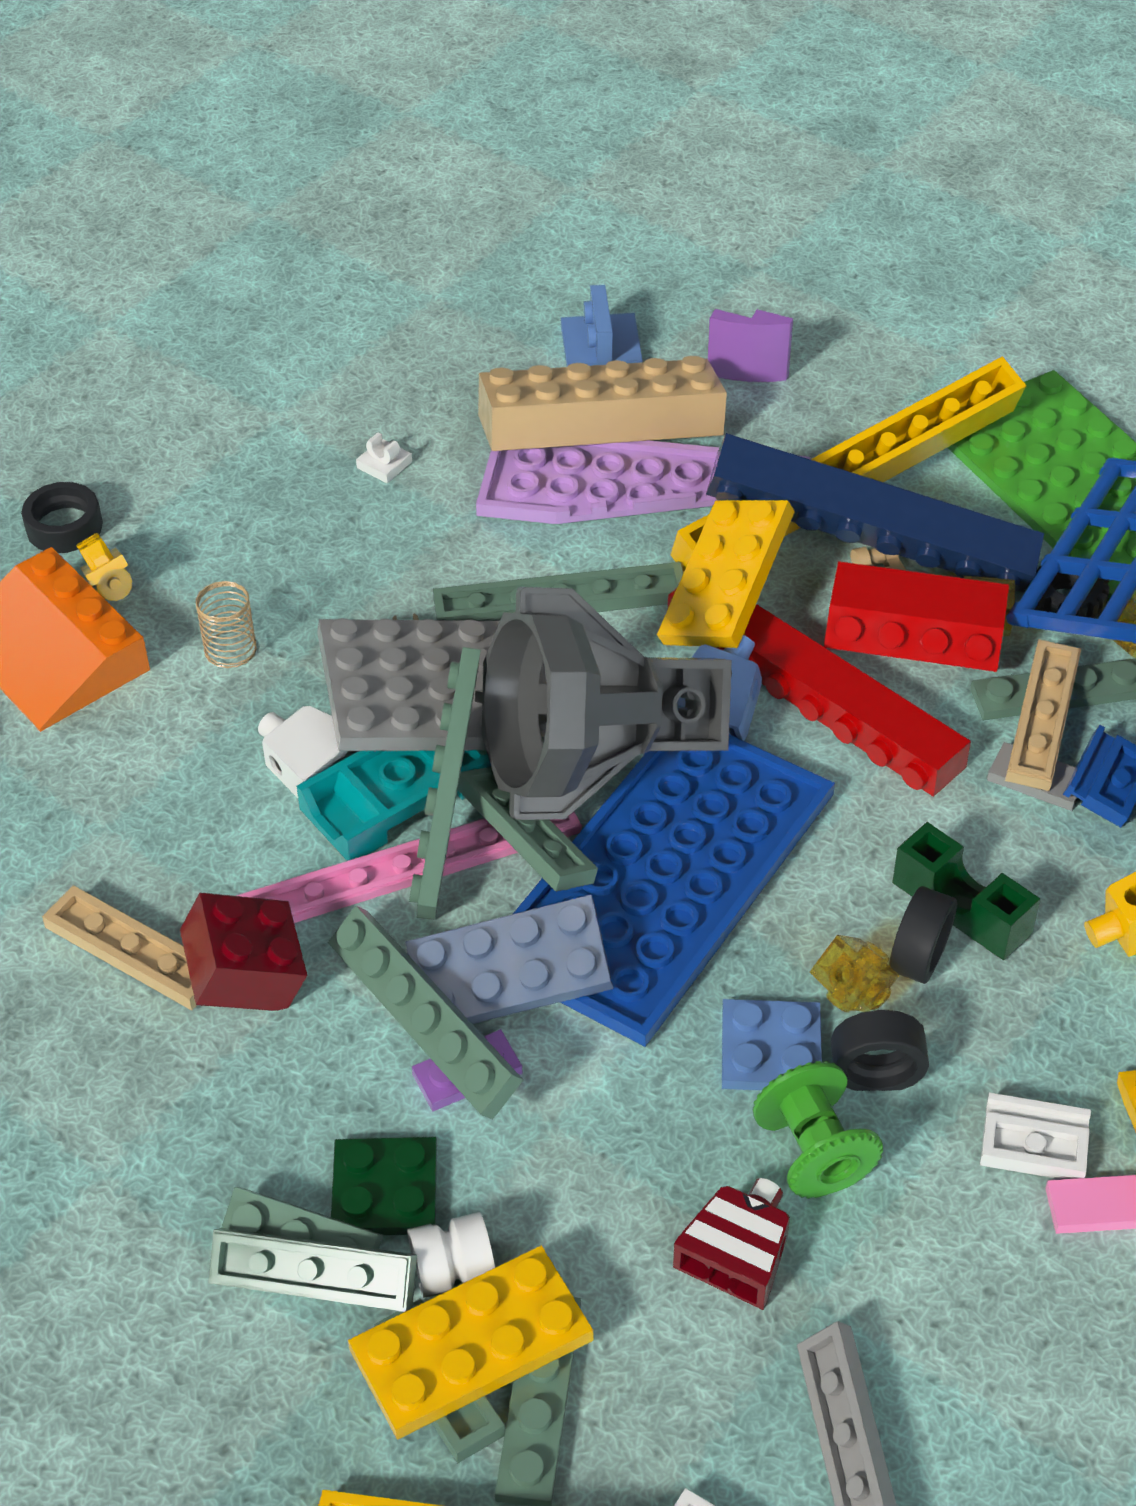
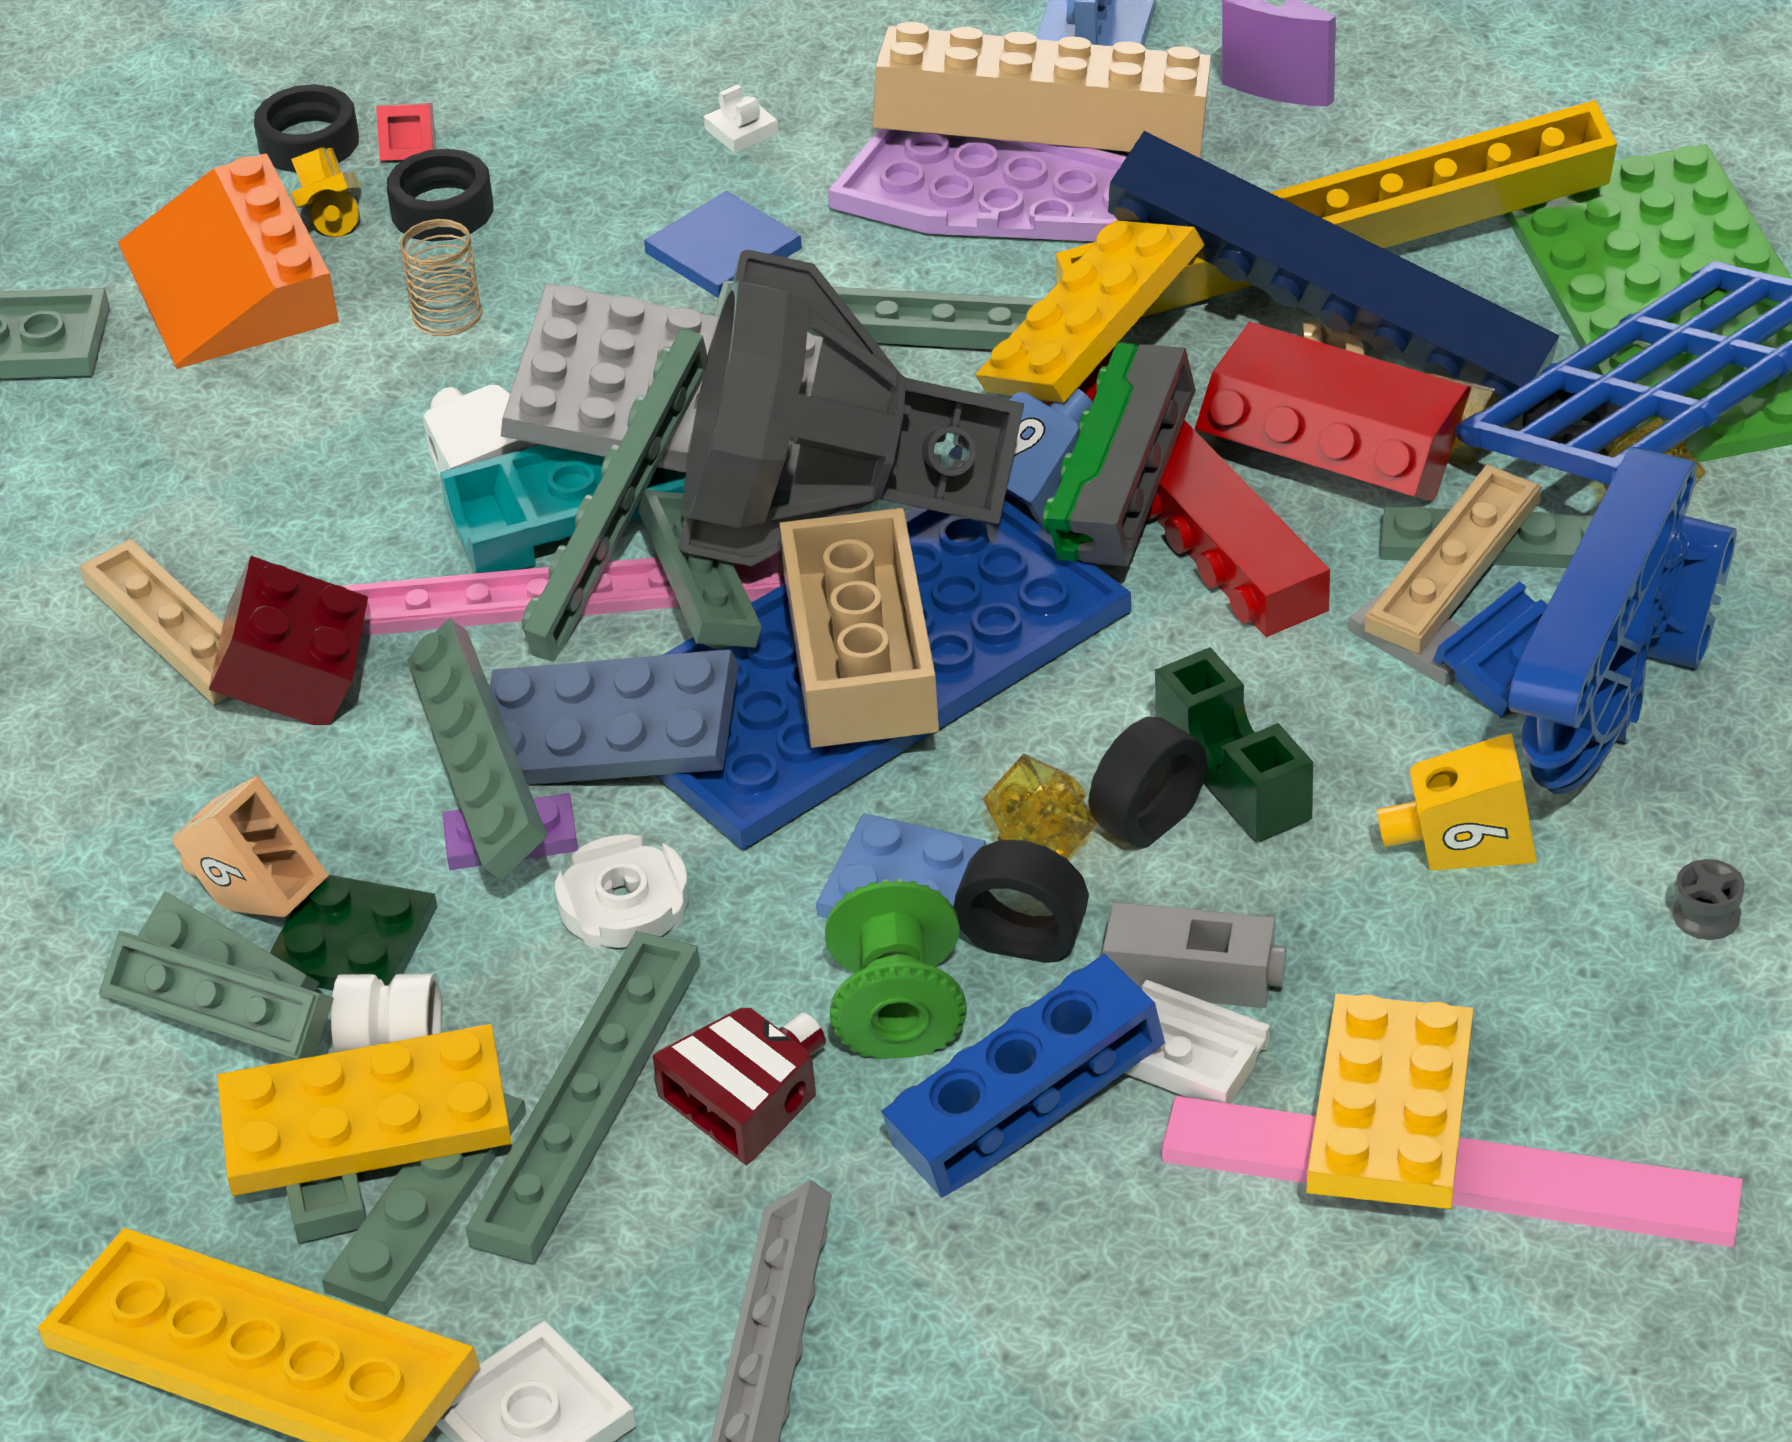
camera: 20 degrees right, 5 degrees down
(141, 508) = (405, 130): none -> coral tile
(193, 575) = (434, 171): none -> black tyre
(289, 1140) = (249, 853): none -> light nougat torso
(412, 558) = (710, 238): none -> tile
(579, 1128) = (609, 920): none -> white plate
(624, 1288) = (582, 1098): none -> sand green plate
(673, 856) = (859, 628): none -> tan brick
(794, 681) = (1120, 454): none -> dark grey piece
(913, 1264) = (1024, 1076): none -> blue brick
(1009, 1064) = (1197, 952): none -> light grey brick

